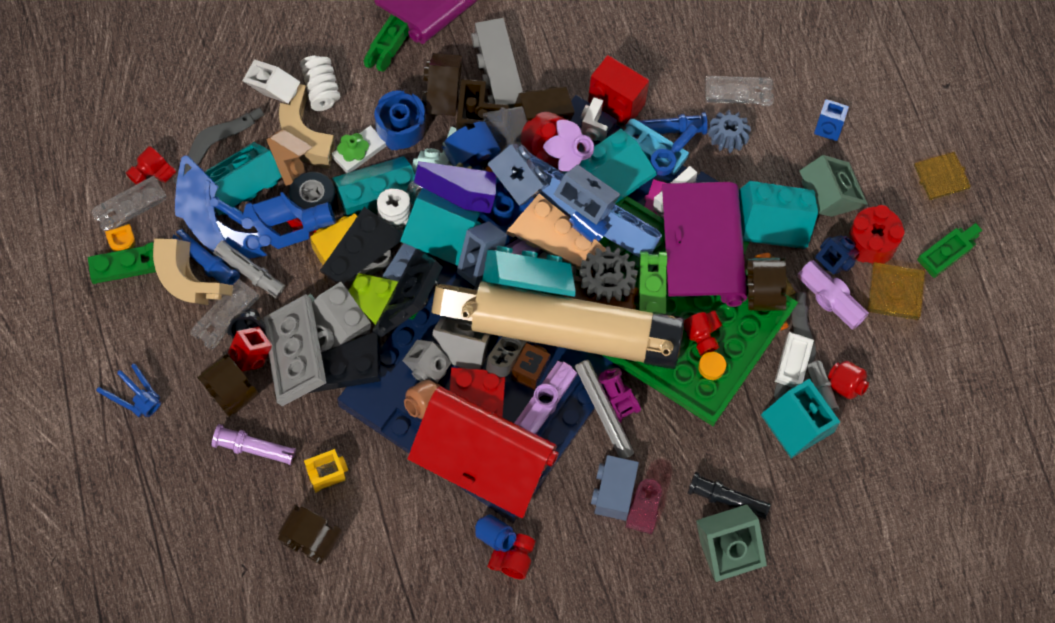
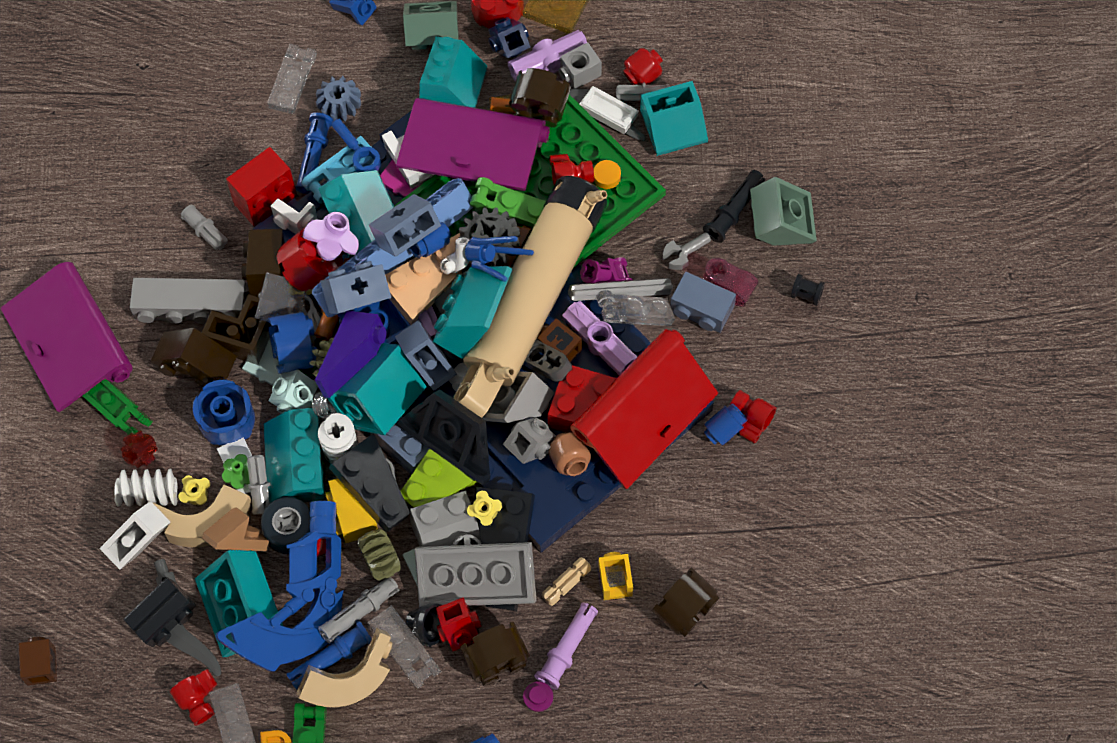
camera: 70 degrees left, 0 degrees up
(156, 47) = (37, 661): none -> reddish brown brick
(202, 432) = (538, 696): none -> magenta plate
(213, 121) = (160, 613): none -> black brick
(299, 270) = (379, 554): none -> olive gear
(314, 432) = (566, 581): none -> tan axle
(332, 125) = (195, 498): none -> light yellow plate
(342, 162) = (258, 483): none -> light grey axle
(353, 67) = (139, 449): none -> clear red gear
(357, 346) = (487, 516): none -> light yellow plate
(572, 61) = (204, 227): none -> light grey axle
(577, 253) = (456, 260): none -> white arm
(582, 268) = (481, 251): none -> blue plant
(587, 426) = (635, 309): none -> clear plate
(657, 582) = (807, 289): none -> black bush
(668, 461) = (684, 250): none -> light grey bar
(831, 334) = (584, 57): none -> light grey brick

